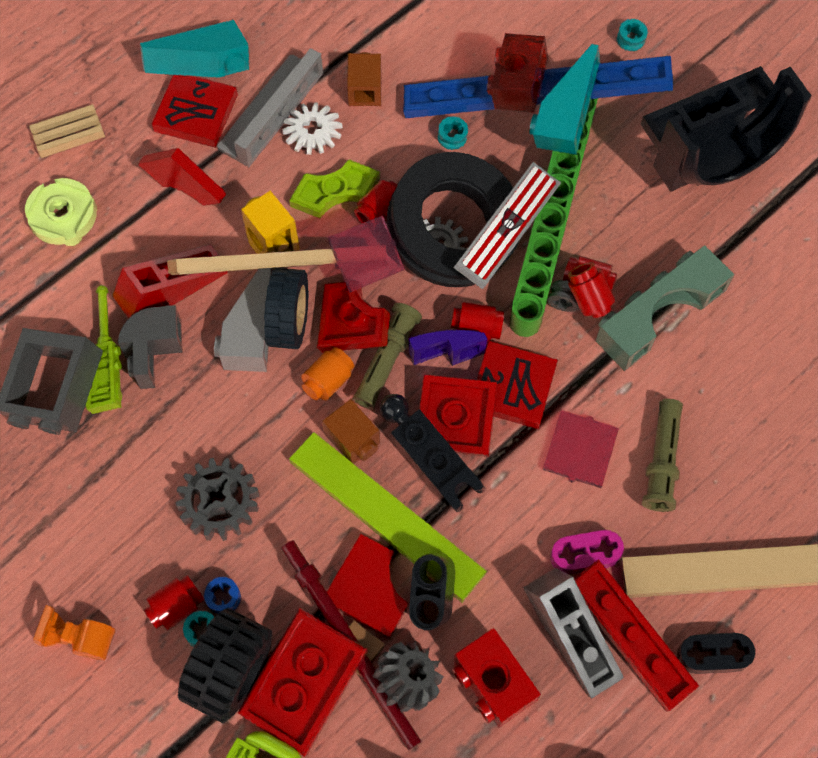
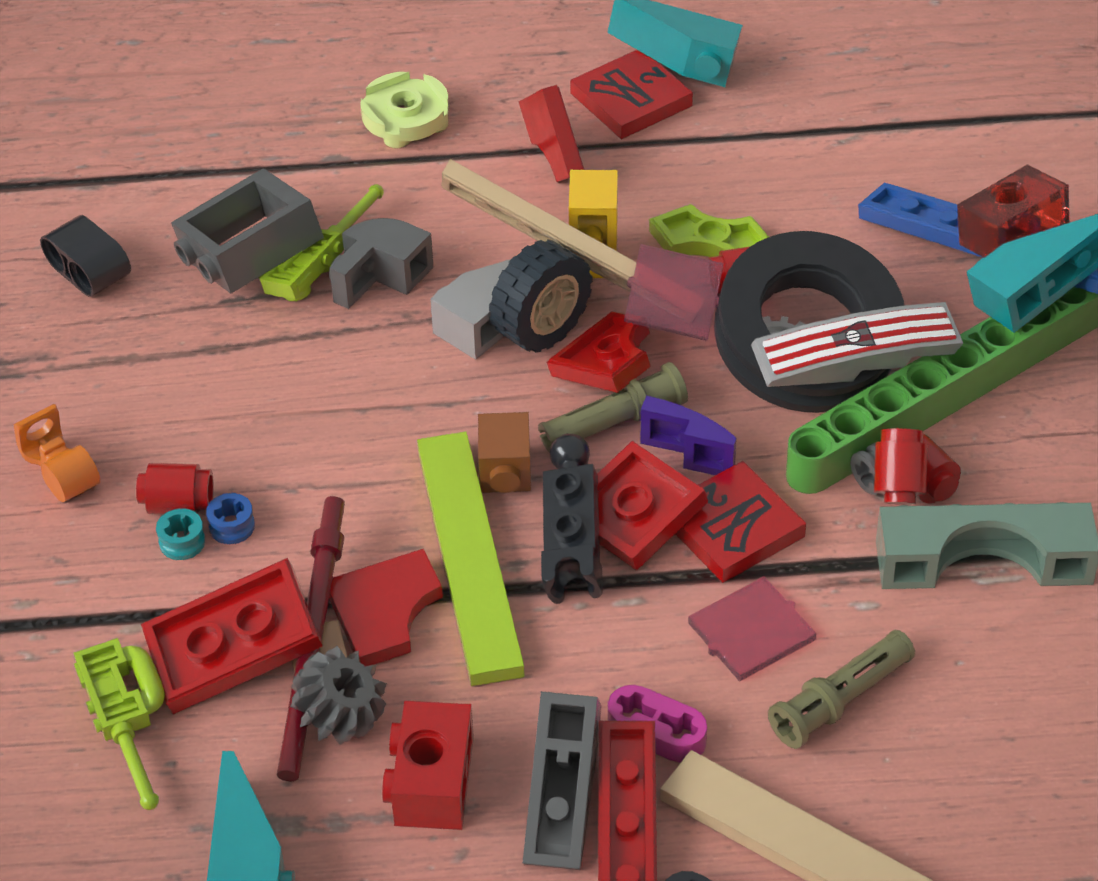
camera: 40 degrees right, 20 degrees down
(66, 126) = (481, 46): tan tile -> none
(151, 286) = (453, 222): red slope -> none
(206, 488) = (308, 429): dark grey gear -> none
(224, 665) = (163, 551): black tyre -> none
(271, 106) = (717, 131): light grey panel -> none
(320, 137) = (721, 169): white gear -> none
(327, 374) = (532, 388): orange brick -> none
(364, 79) = (840, 153): dark orange brick -> none
(426, 589) = (441, 635): black beam -> none
(446, 127) = (900, 246): teal bush -> none
(478, 318) = (756, 437): red brick -> none

